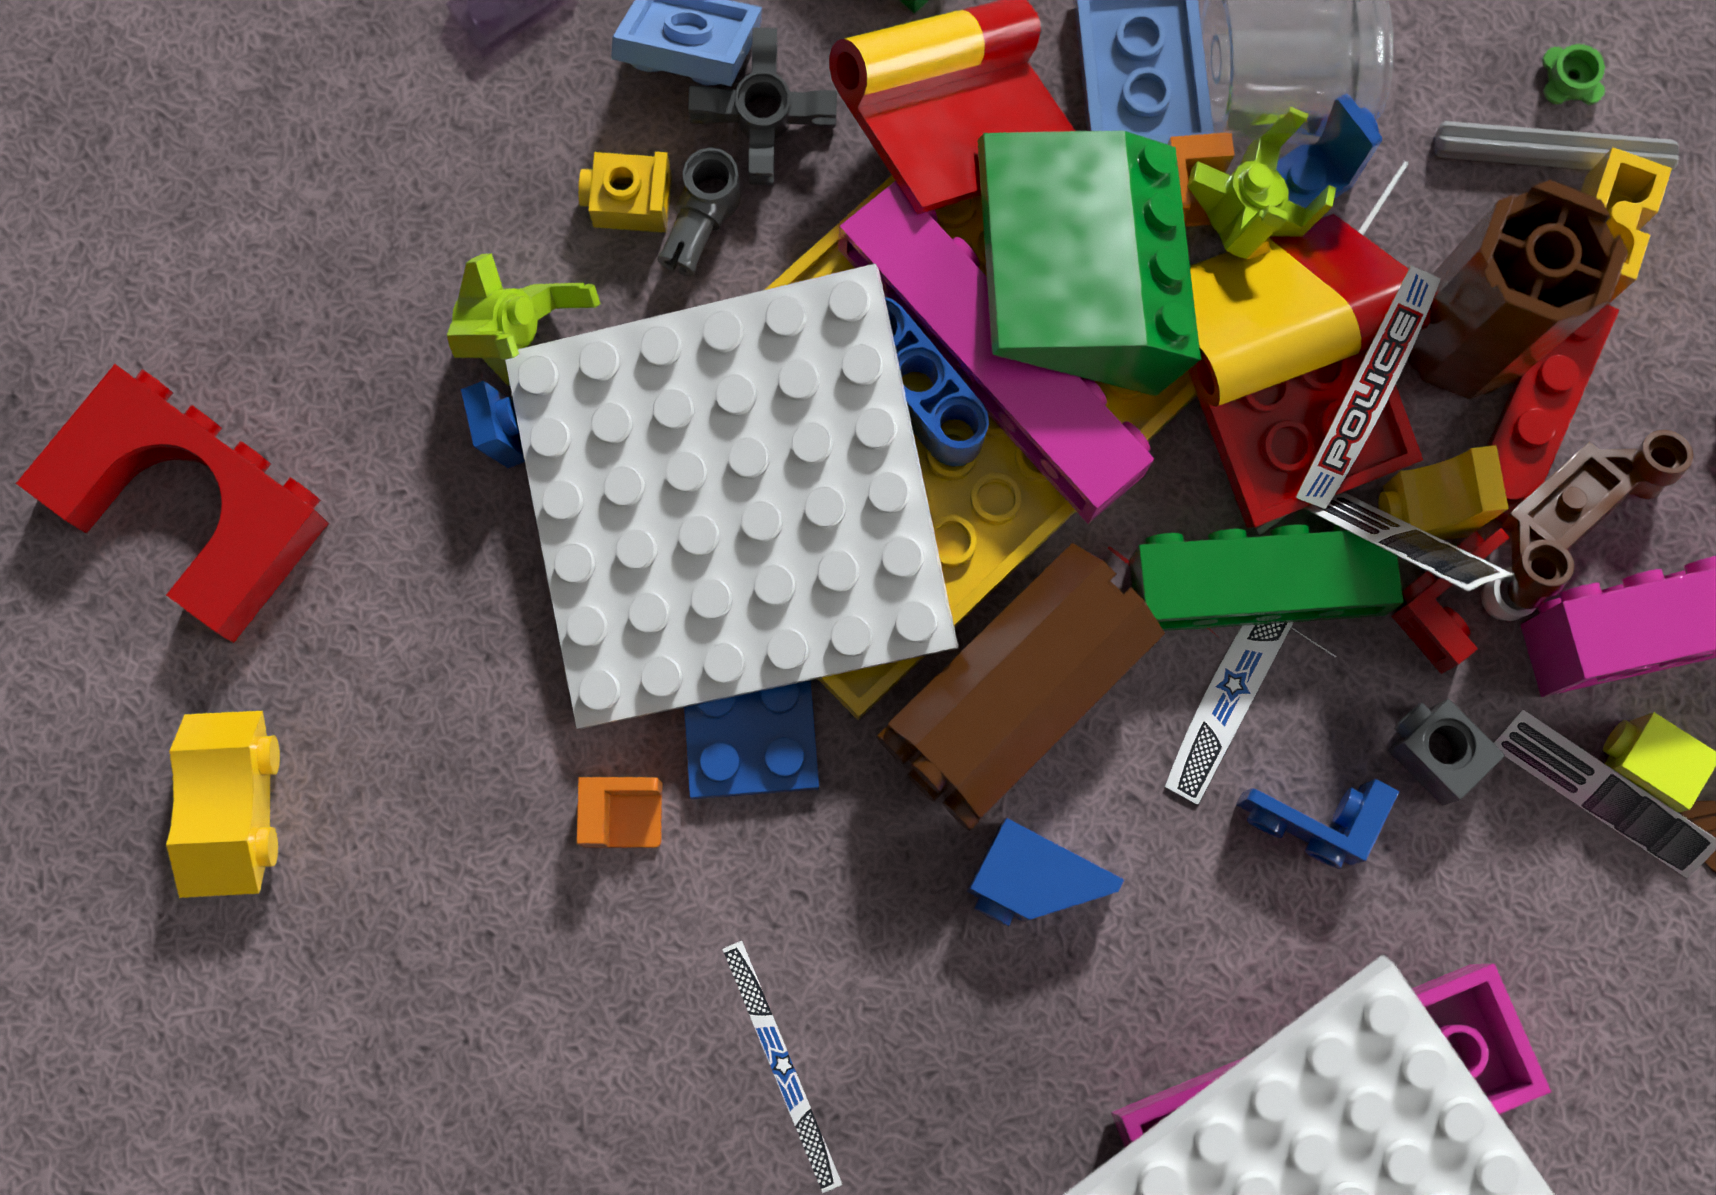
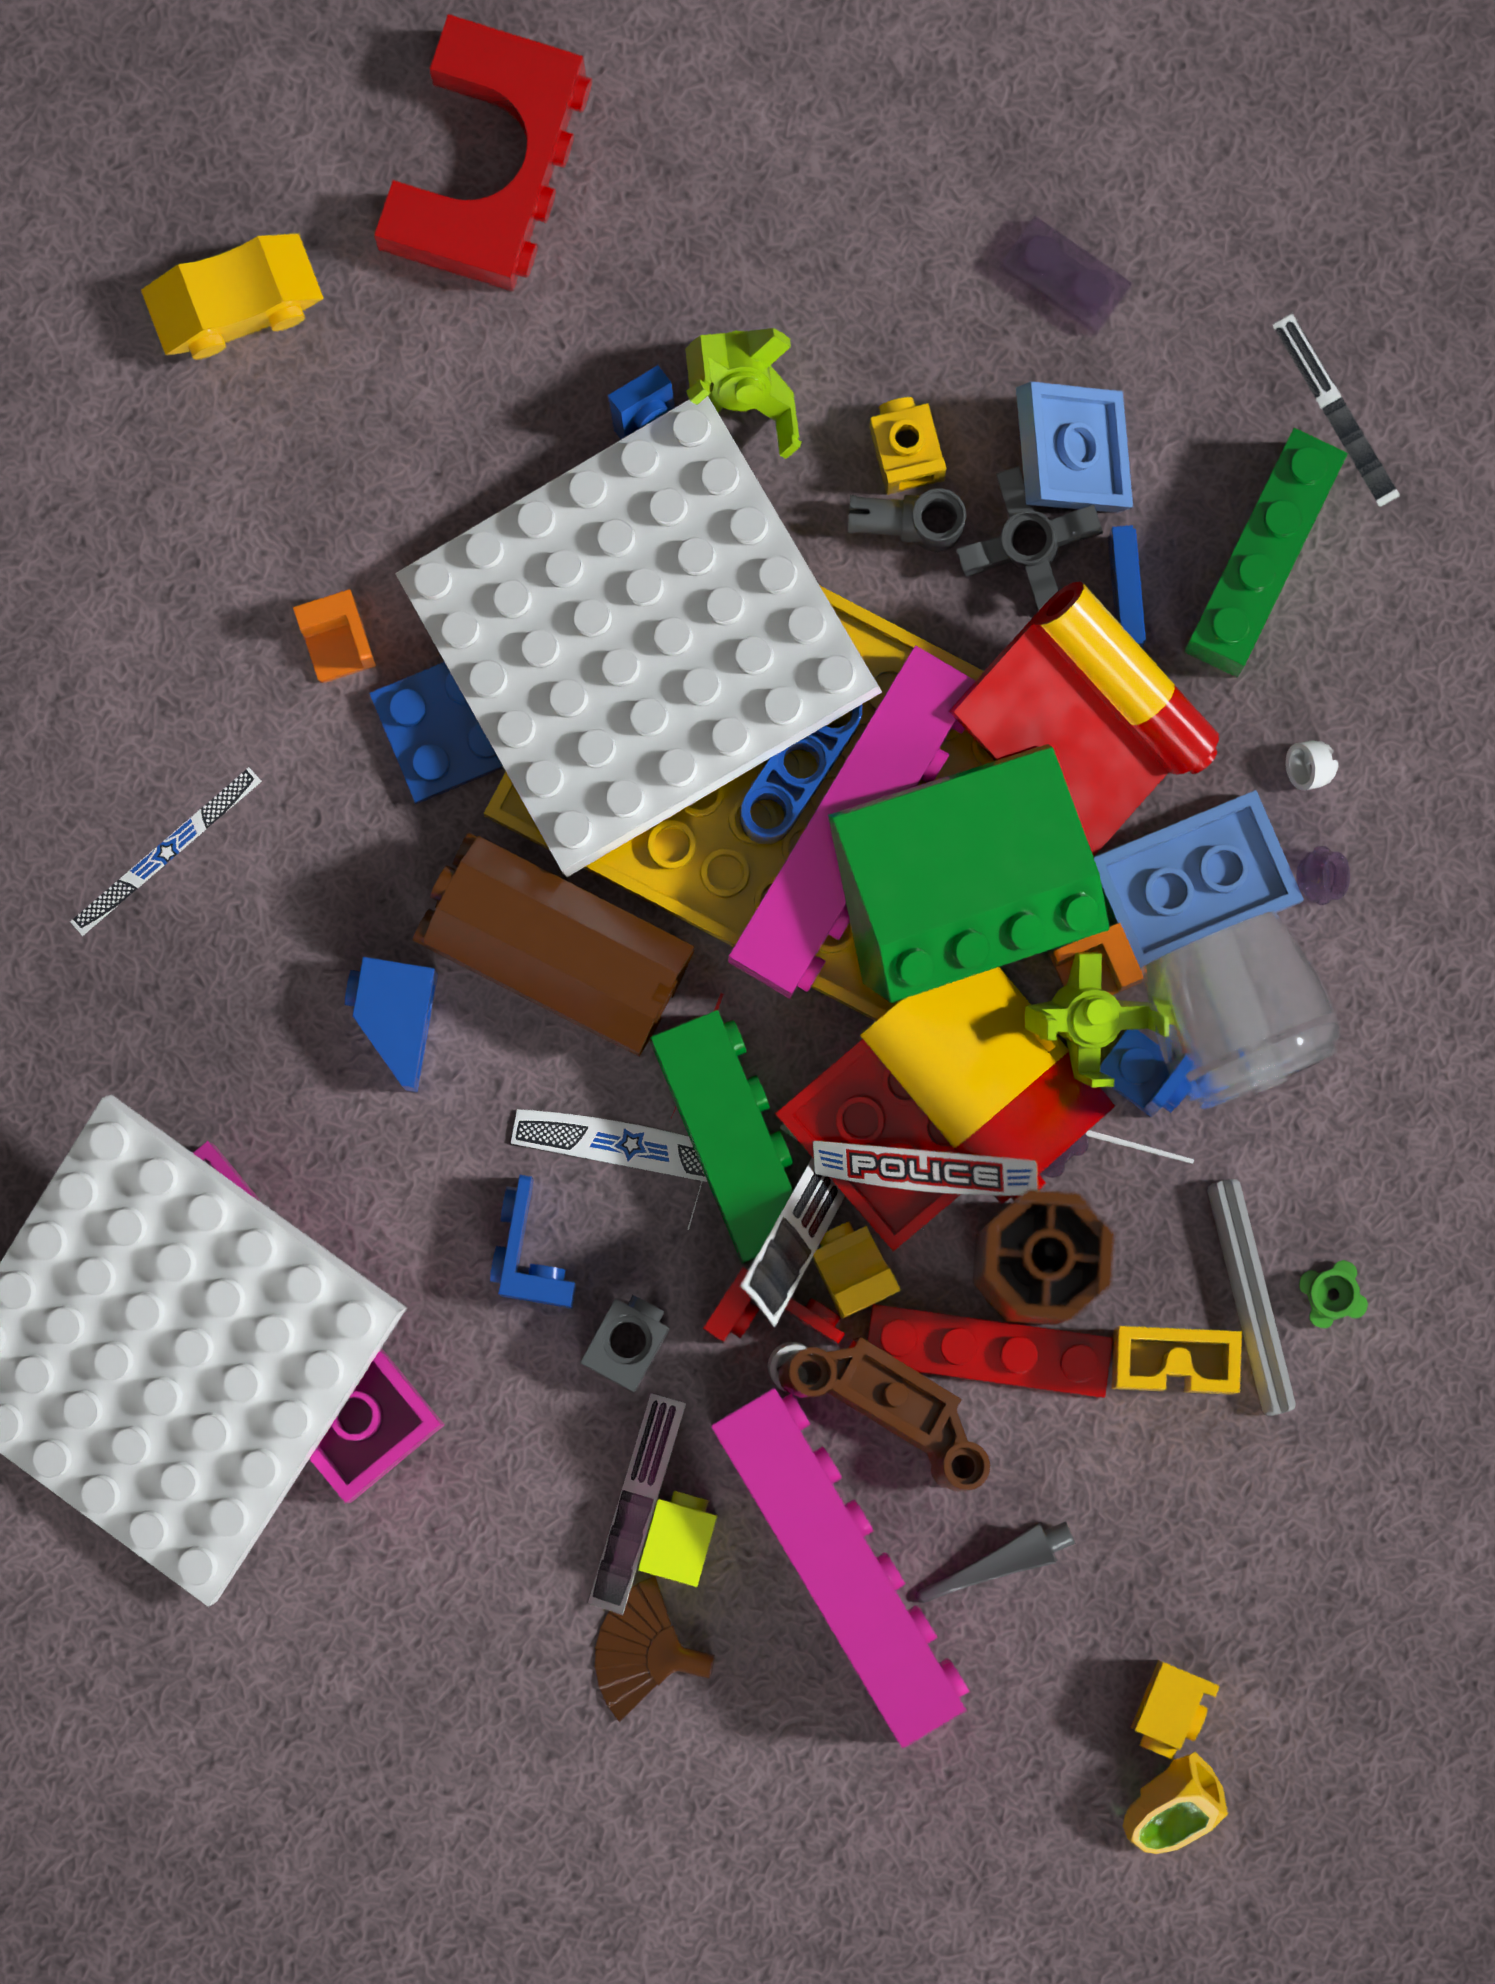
camera: 75 degrees right, 5 degrees up
(818, 28) = (1126, 581): none -> blue tile

